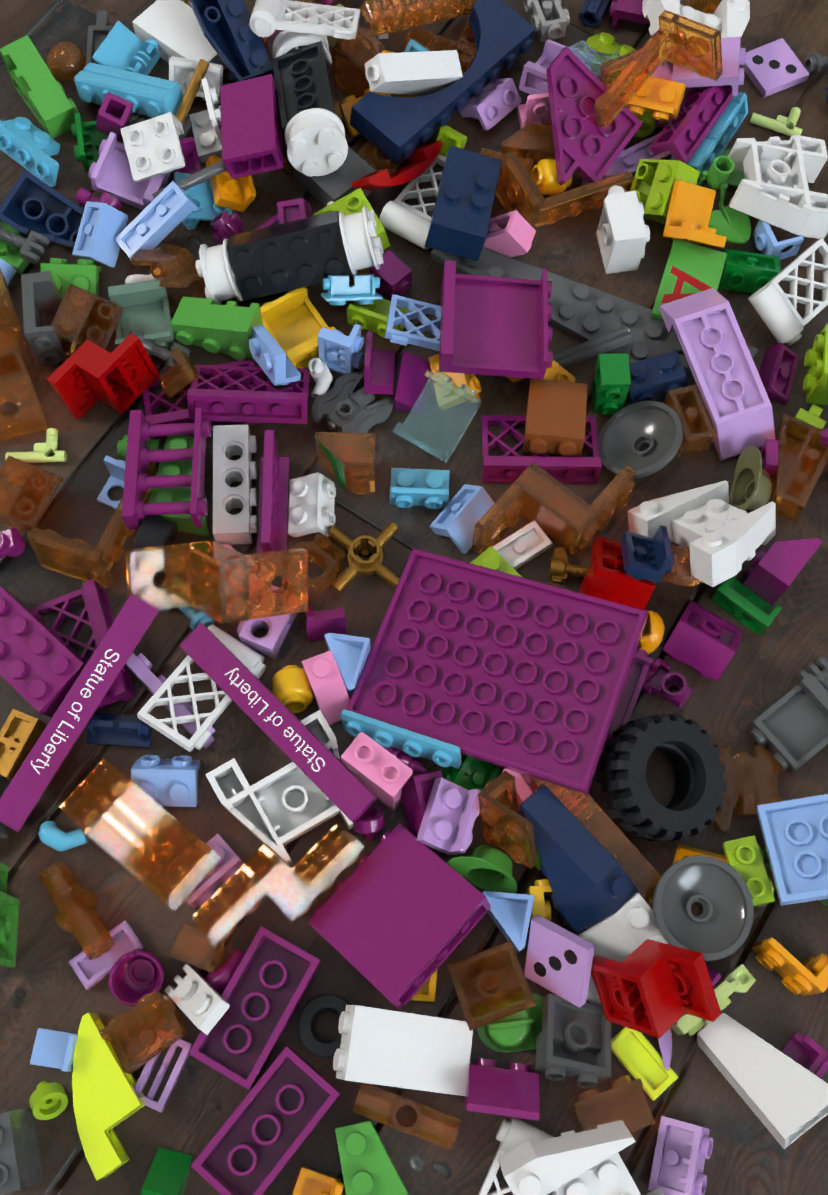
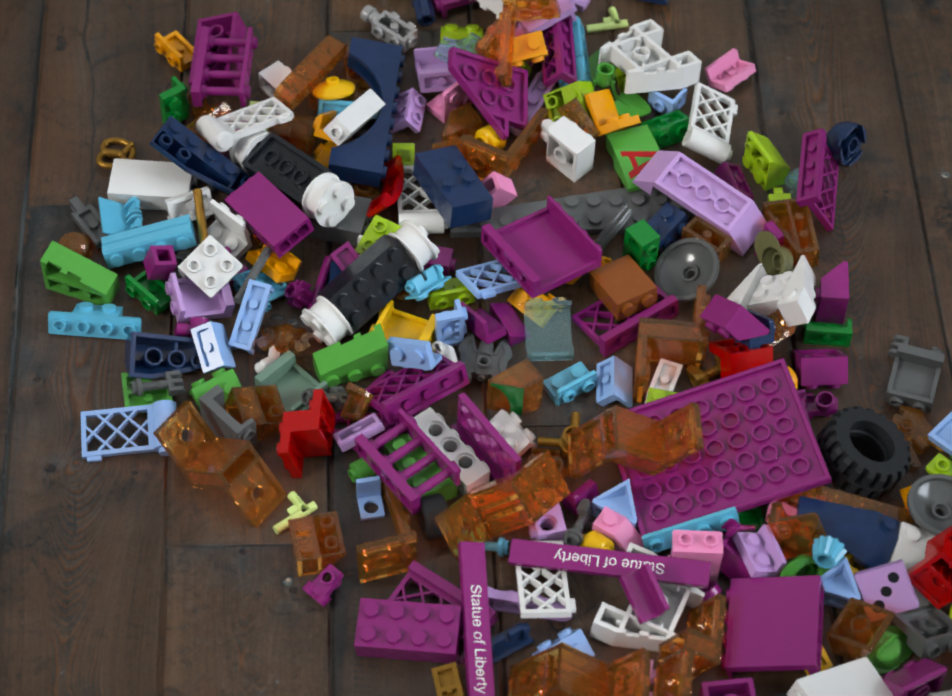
camera: 35 degrees left, 15 degrees down
(157, 406) = (367, 426): none -> lavender tile
(274, 782) = (644, 594): none -> magenta panel
(310, 646) = (573, 535): none -> dark grey hinge
(407, 602) = (635, 440): none -> clear orange bracket
(434, 37) = (333, 89): none -> yellow dish
(444, 770) = (733, 527): none -> magenta hand
(518, 873) = (828, 551): none -> medium azure piece
(626, 531) = (731, 320): none -> magenta slope
(651, 195) = (575, 112): none -> clear orange tile

